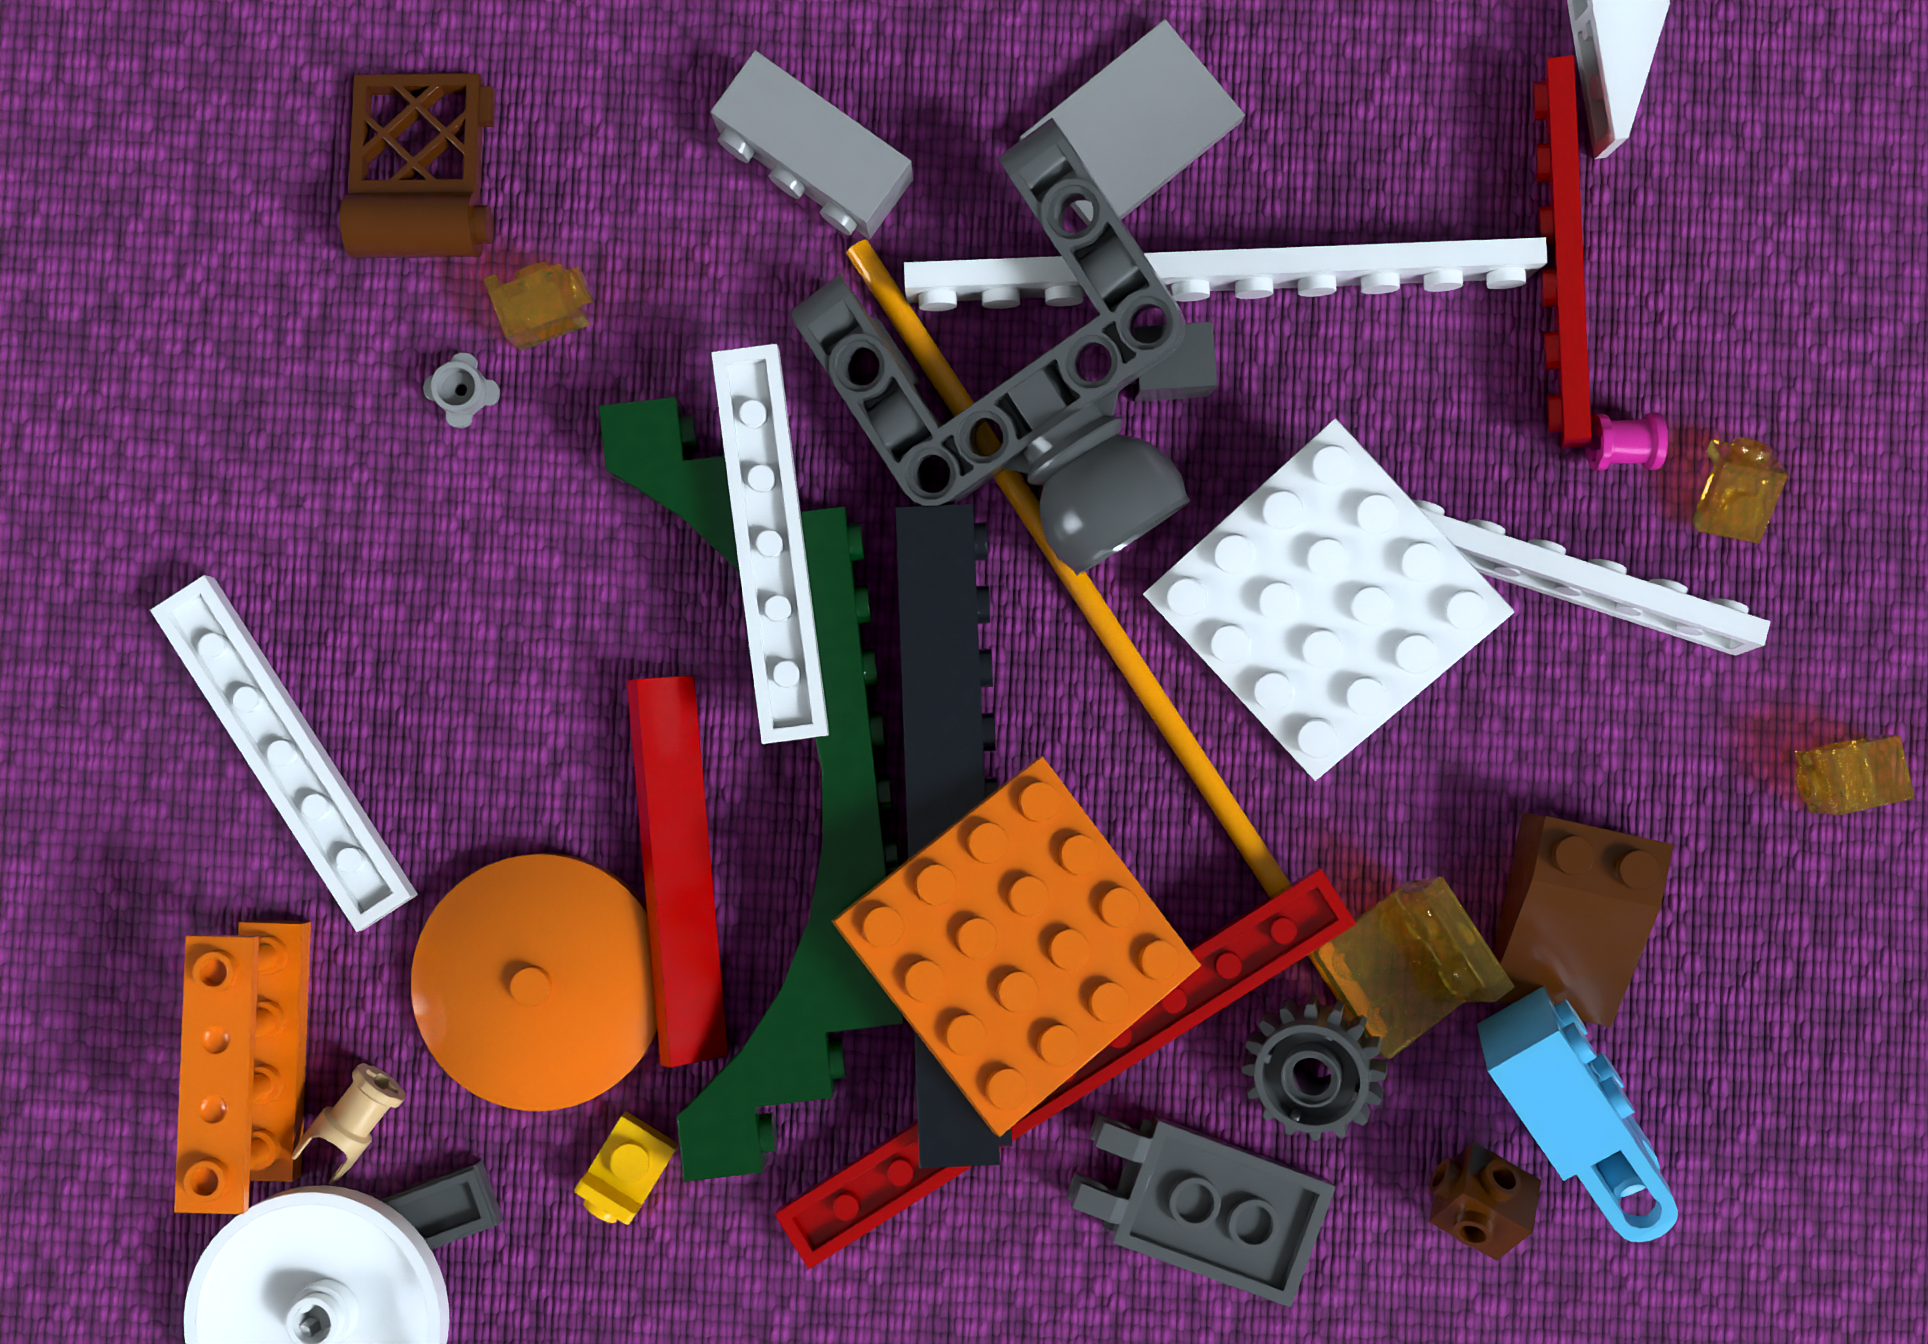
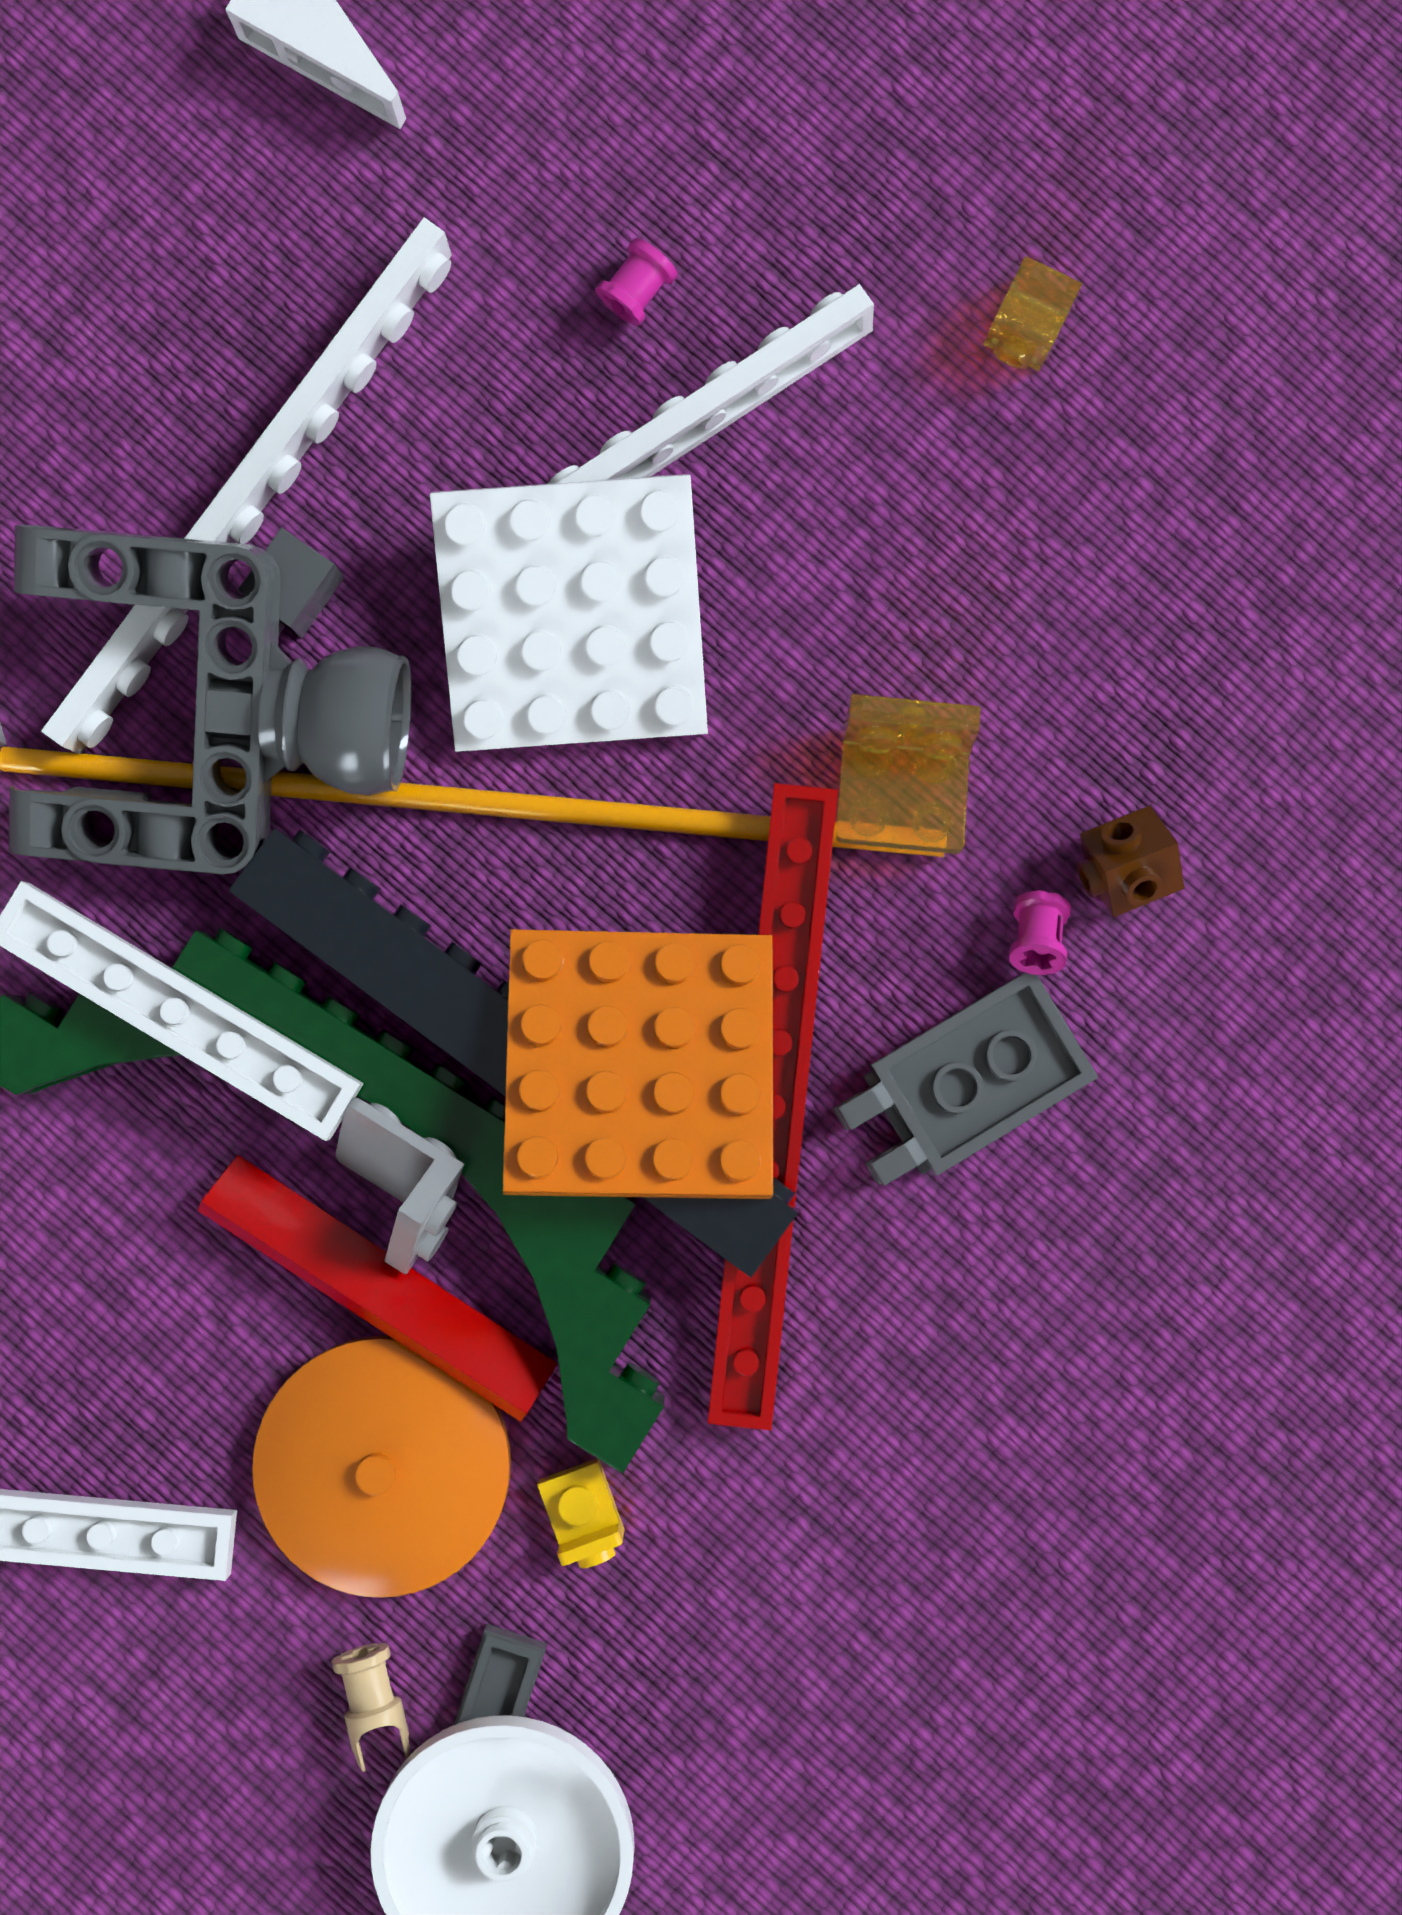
camera: 55 degrees left, 0 degrees up
(241, 1063) = (251, 1749): orange fence -> none
(788, 818) = (408, 1167): none -> light grey bracket
(1144, 119) = (84, 452): light grey tile -> none
(1309, 1101) = (930, 944): dark grey gear -> none
(1369, 1172) = (1040, 933): none -> dark pink bush
(1562, 226) = (428, 199): red plate -> none
(1576, 1108) = (1113, 734): medium azure brick -> none
(1578, 912) = (972, 615): reddish brown slope -> none
(1740, 490) = (744, 225): clear yellow bracket -> none

